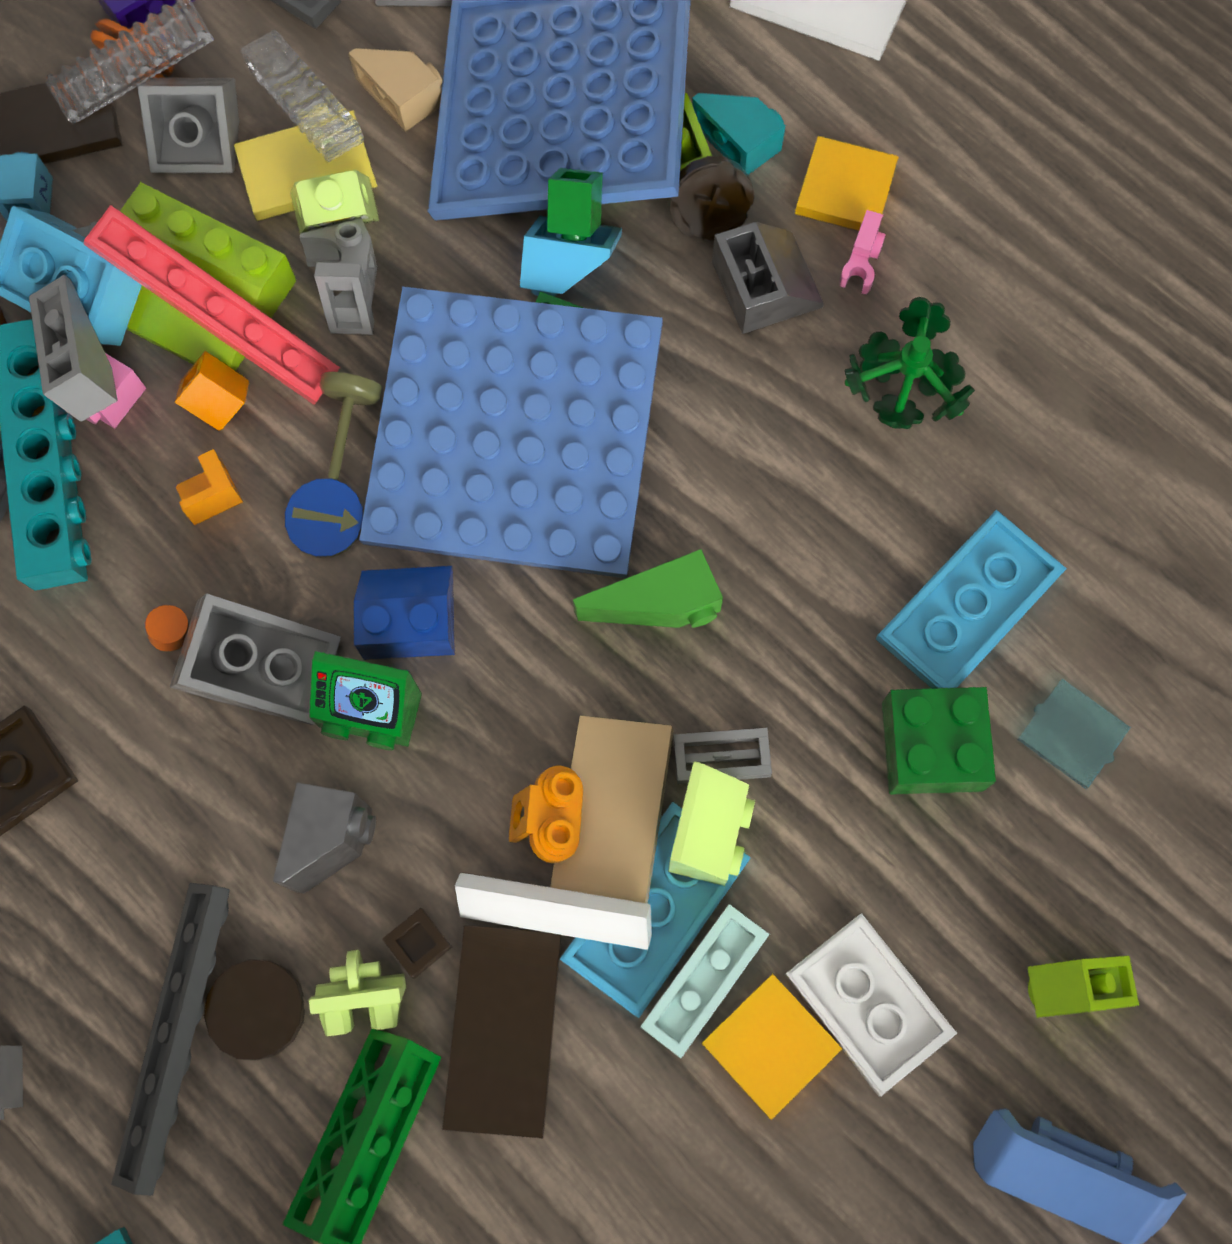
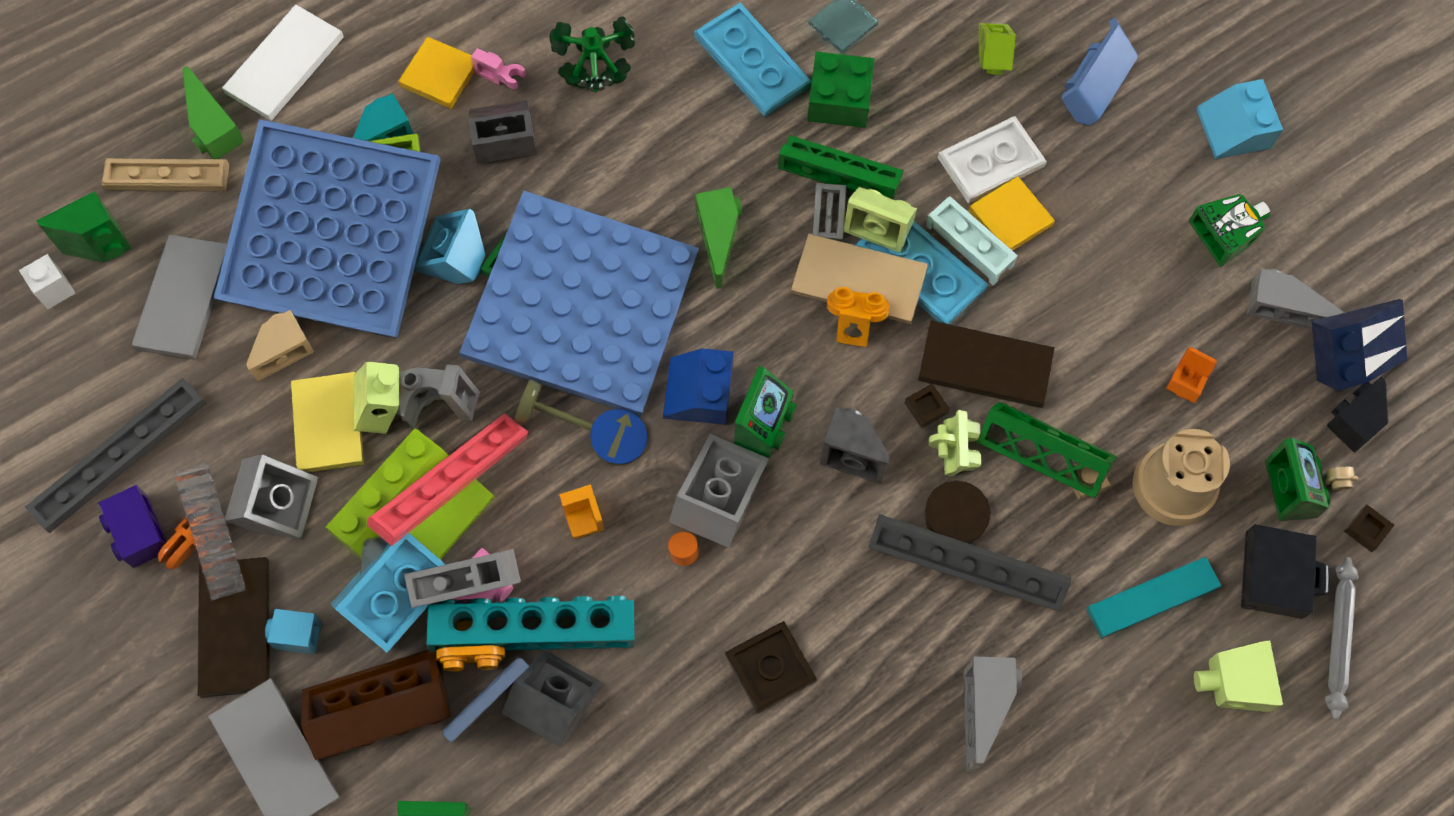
camera: 85 degrees left, 5 degrees down
(212, 391) = (505, 501): light orange panel -> none
(302, 95) = (271, 411): clear gear -> none
(554, 910) = (918, 316): white tile -> none
(574, 203) = (431, 221): green brick -> none
(711, 197) = (435, 139): dark brown tile -> none
(786, 762) = (836, 172): none -> green fence

